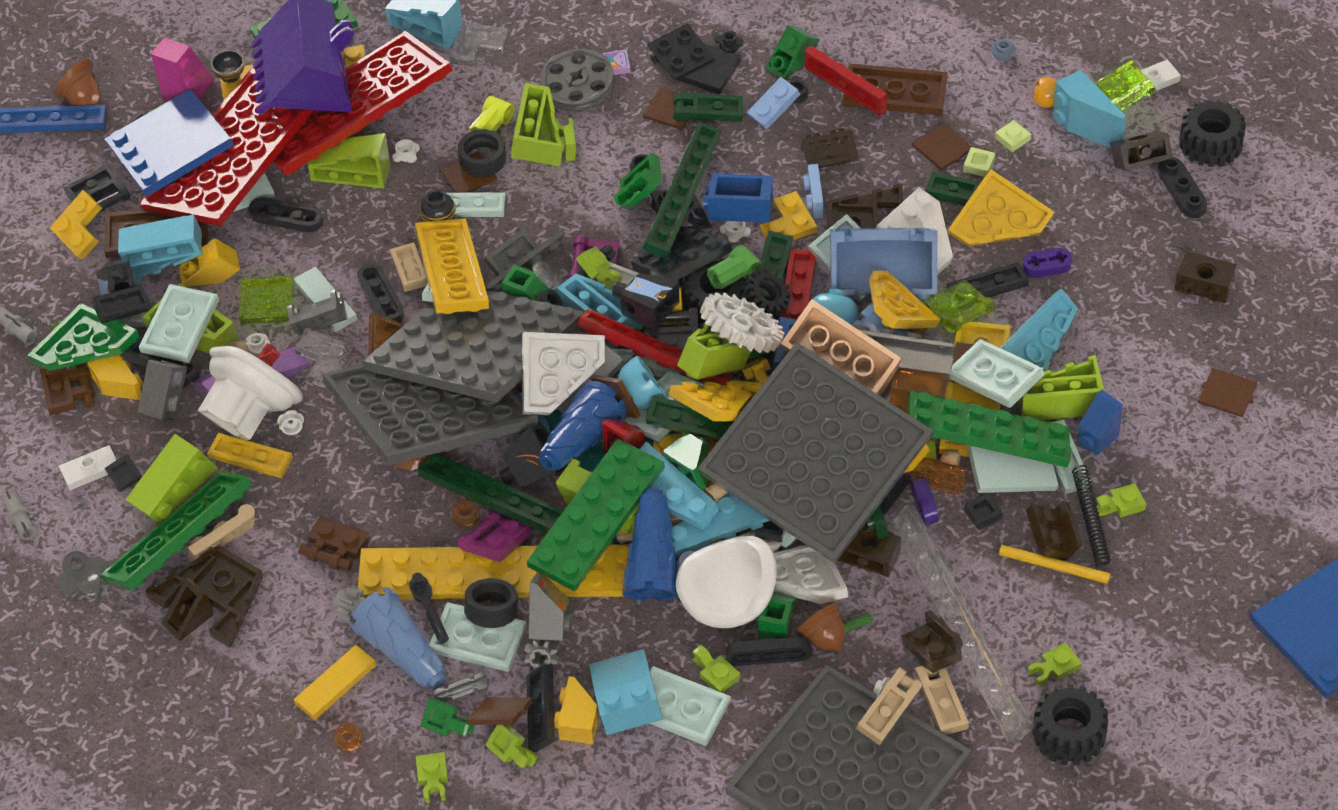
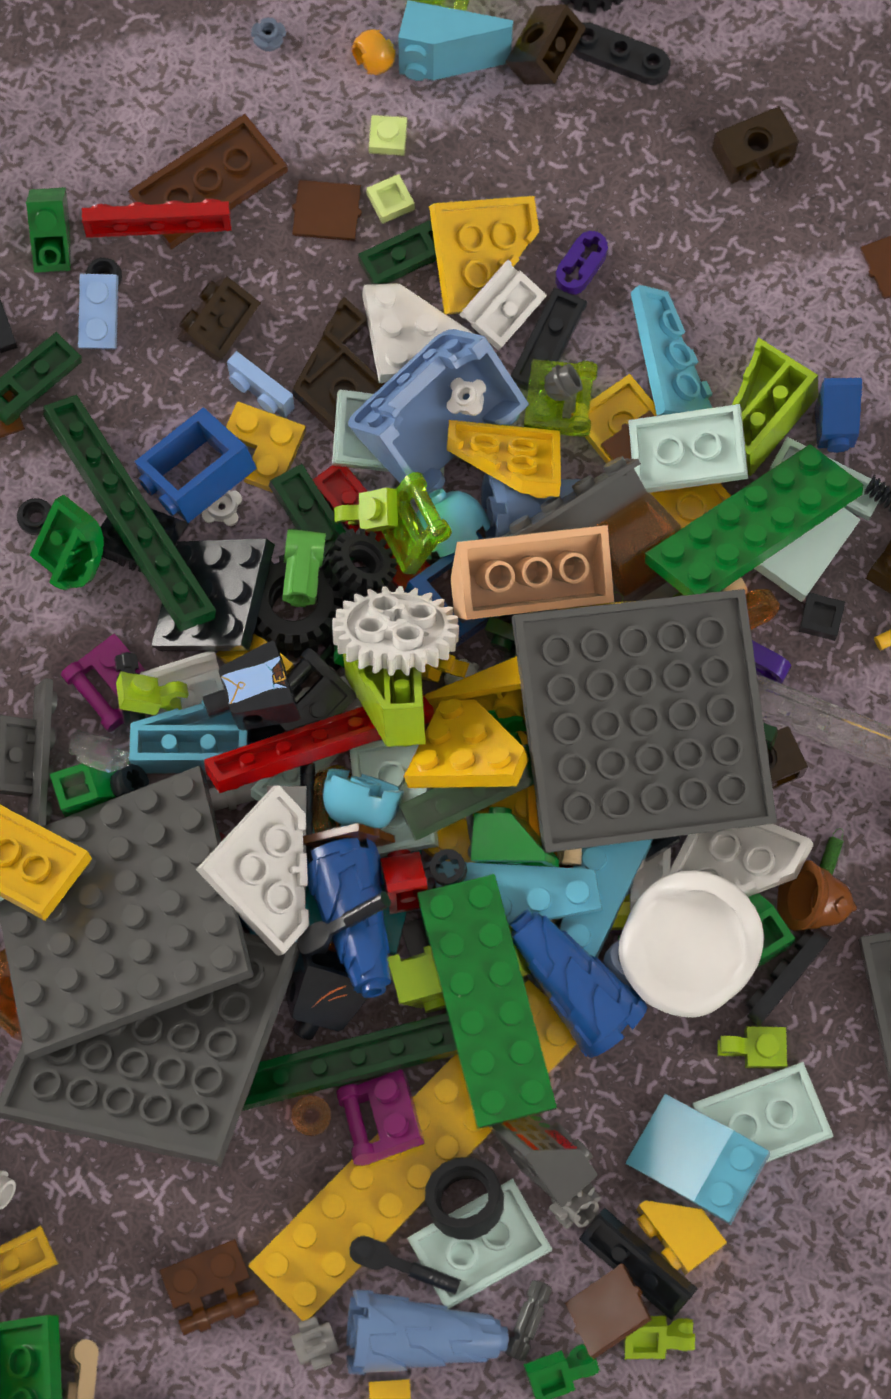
camera: 50 degrees left, 20 degrees up
(547, 421) = (319, 935): none -> black piece
(649, 440) = (455, 858): none -> black bush
(798, 274) = (374, 513): none -> lime plate
(811, 288) = (409, 540): none -> clear neon green plate
(907, 266) = (471, 406): none -> white plate
(963, 293) = (562, 383): none -> dark grey plate
(980, 248) = (503, 305): none -> white plate

